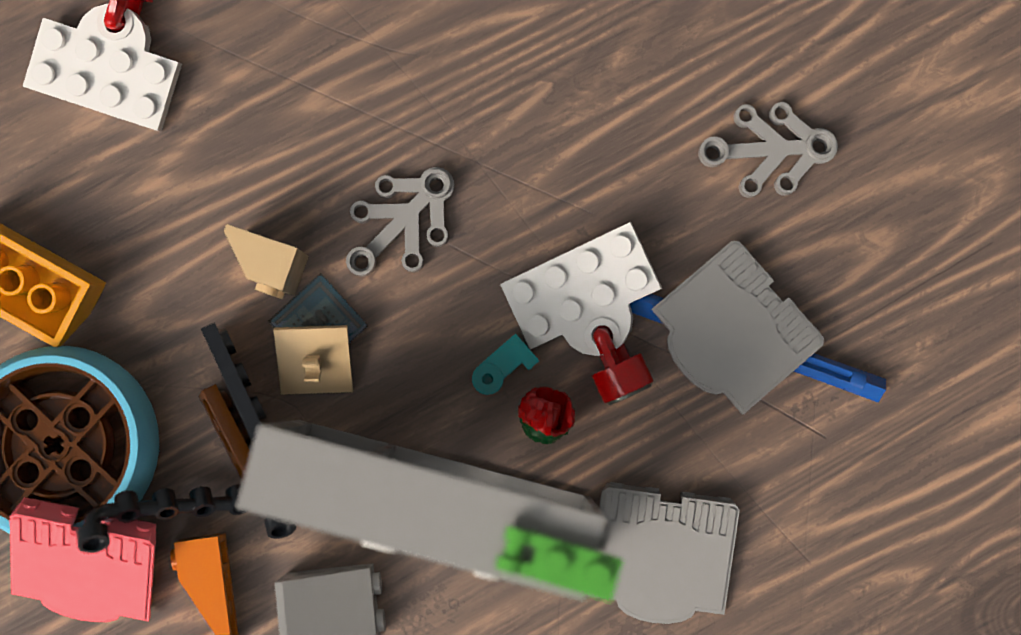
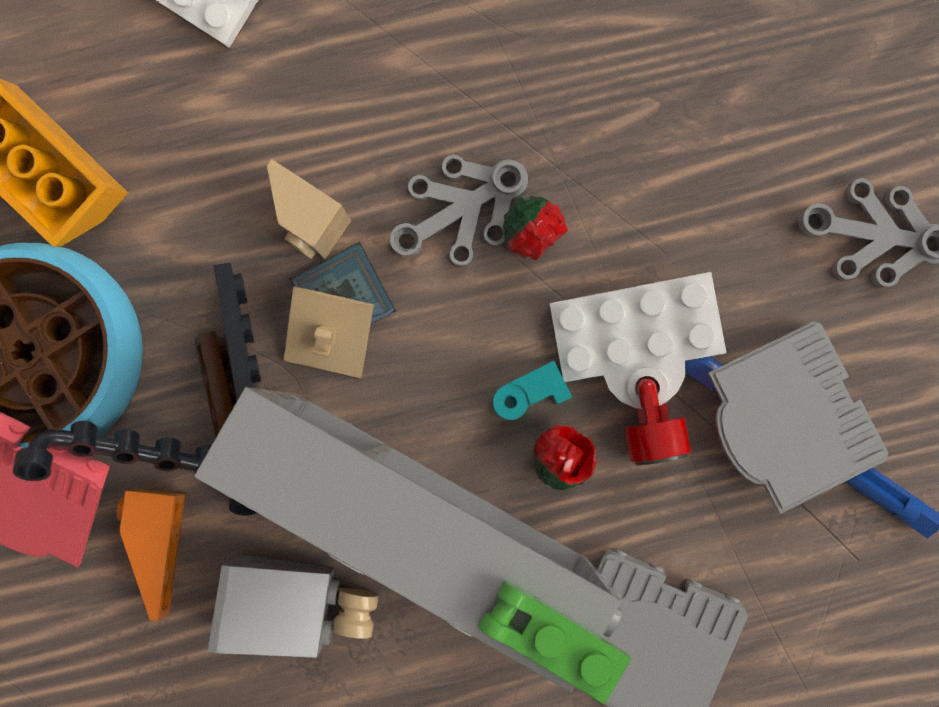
camera: 15 degrees right, 0 degrees up
(401, 599) = (354, 618): none -> tan wheel
(468, 221) = (533, 226): none -> red piece

